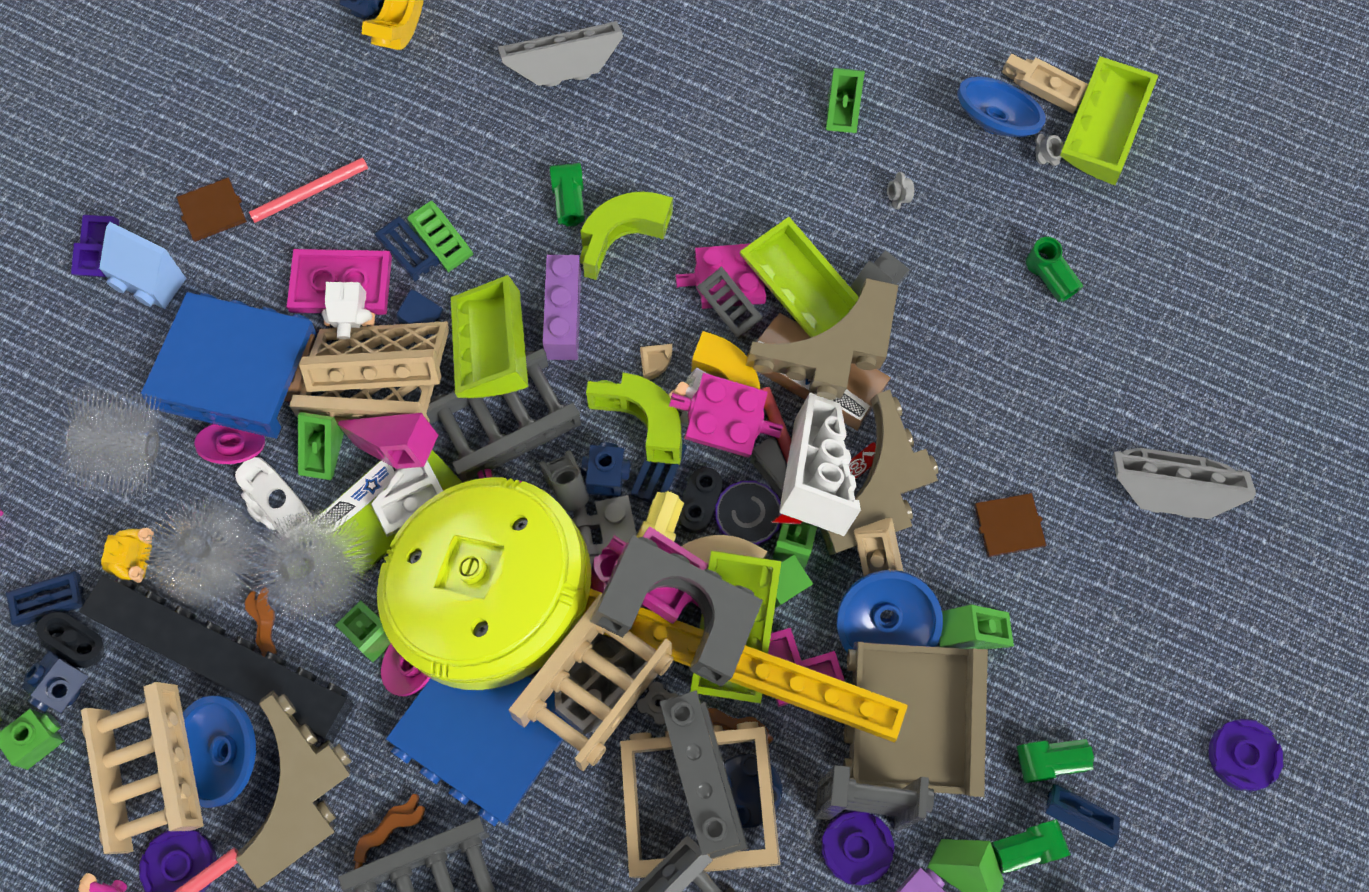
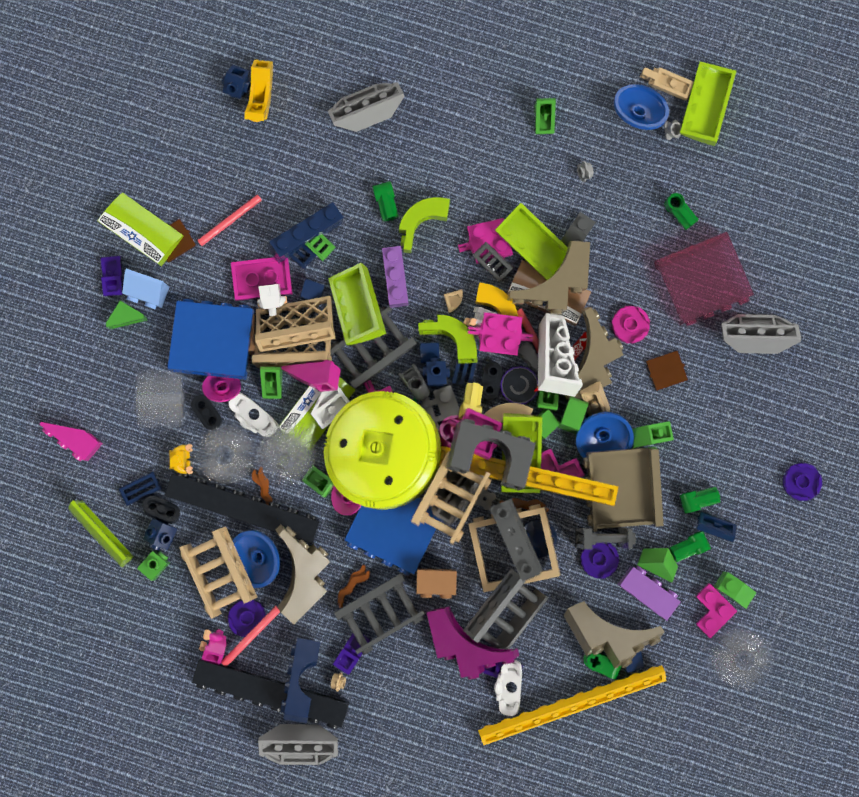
camera: 10 degrees left, 15 degrees up
(95, 308) = (123, 316): none -> bright green slope
(160, 182) = (140, 228): none -> lime slope
(197, 484) = (207, 412): none -> black plate
(394, 224) = (313, 226): none -> dark blue arch
(541, 843) = (436, 582): none -> medium nougat brick
(598, 431) = (428, 351): none -> dark blue slope
(837, 573) = (573, 415): none -> bright green slope
(954, 439) = (630, 324): none -> dark pink tile
(1088, 380) = (705, 279): none -> clear pink panel

